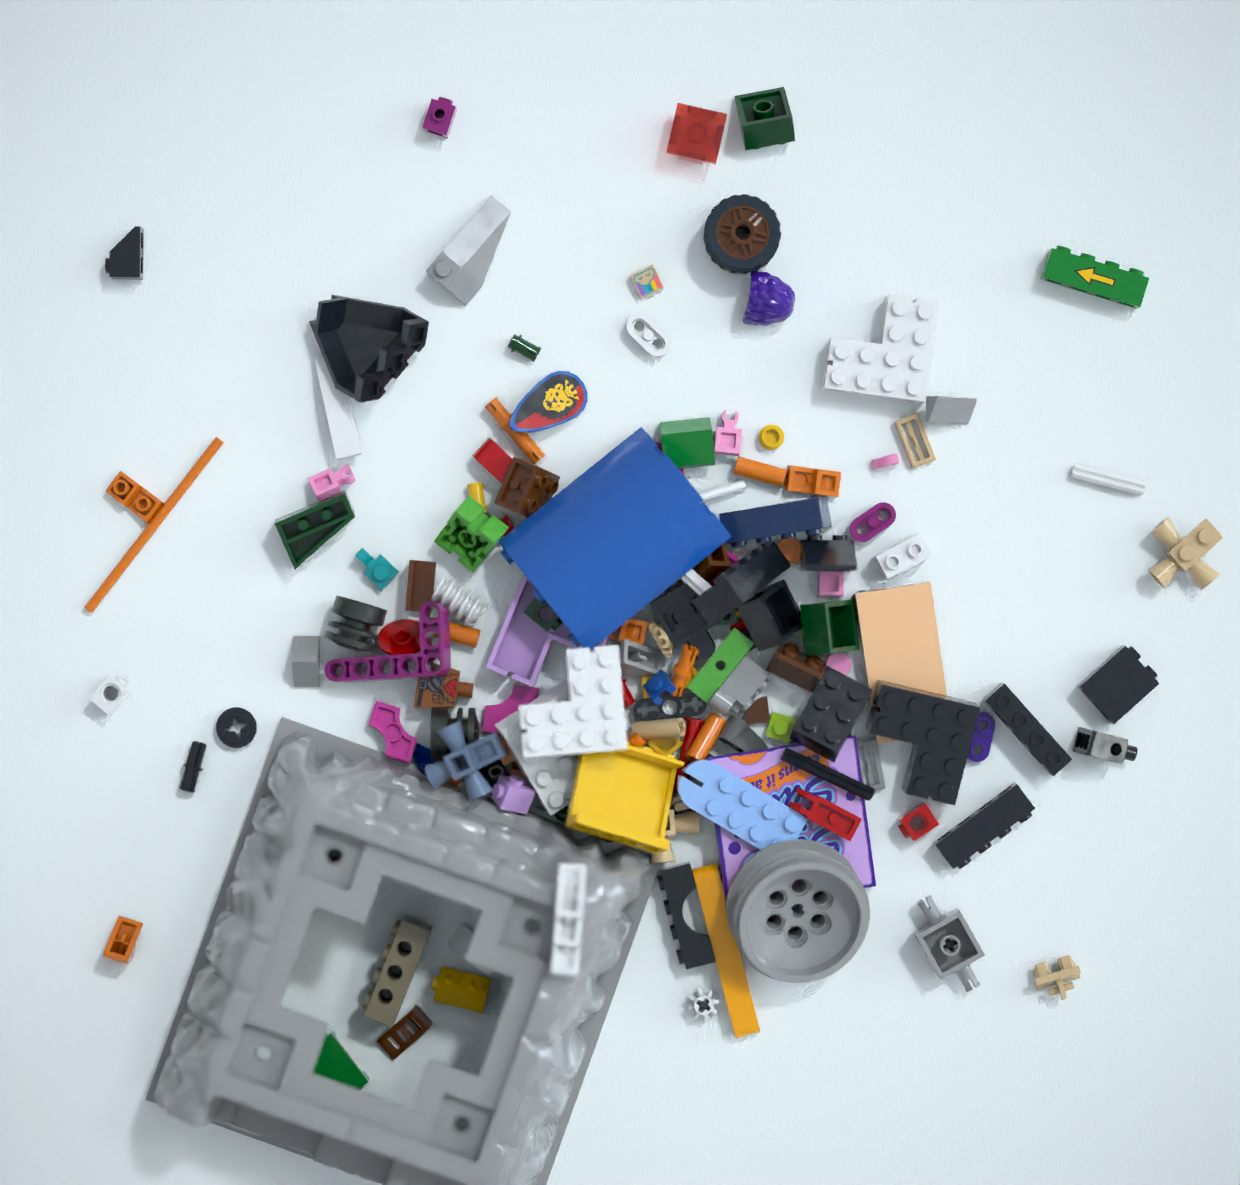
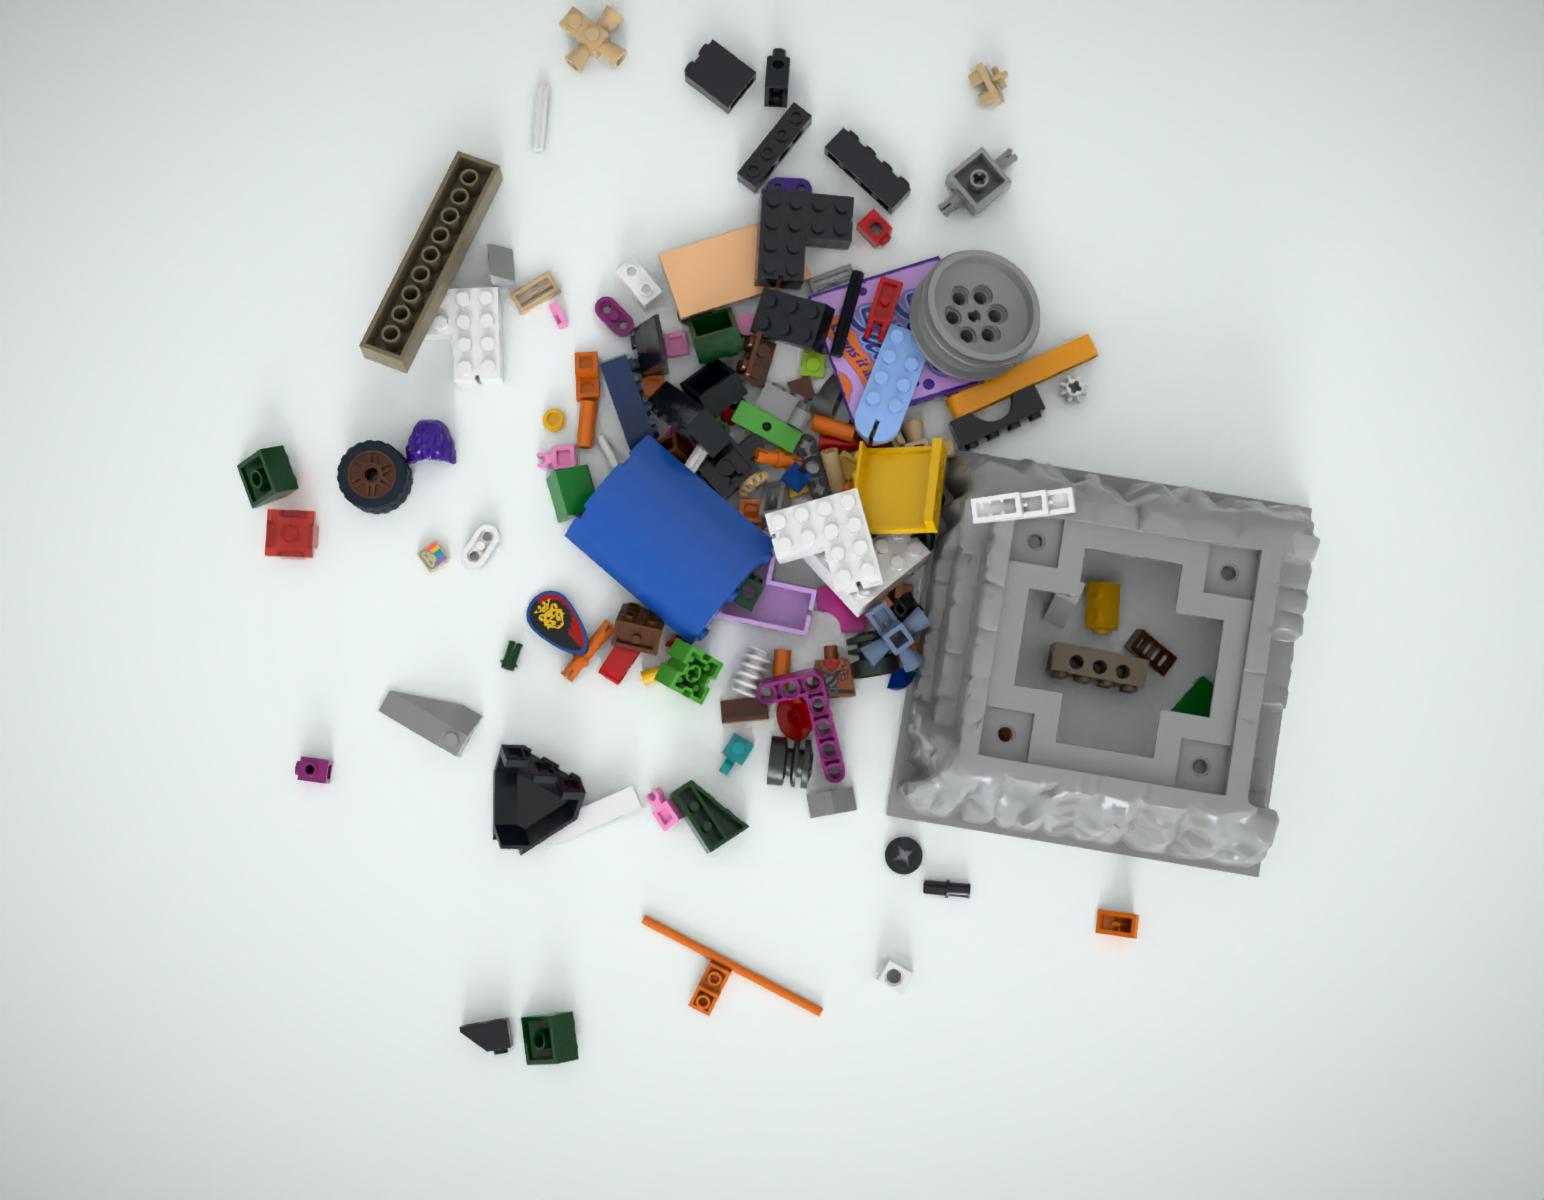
camera: 100 degrees left, 5 degrees down
(112, 319) = (549, 1038): none -> dark green slope
(398, 742) = (890, 704): dark pink tile -> none
(513, 794) = (917, 589): lavender brick -> none
(963, 335) = (431, 262): none -> dark tan brick
(1095, 278) = (362, 160): green brick -> none

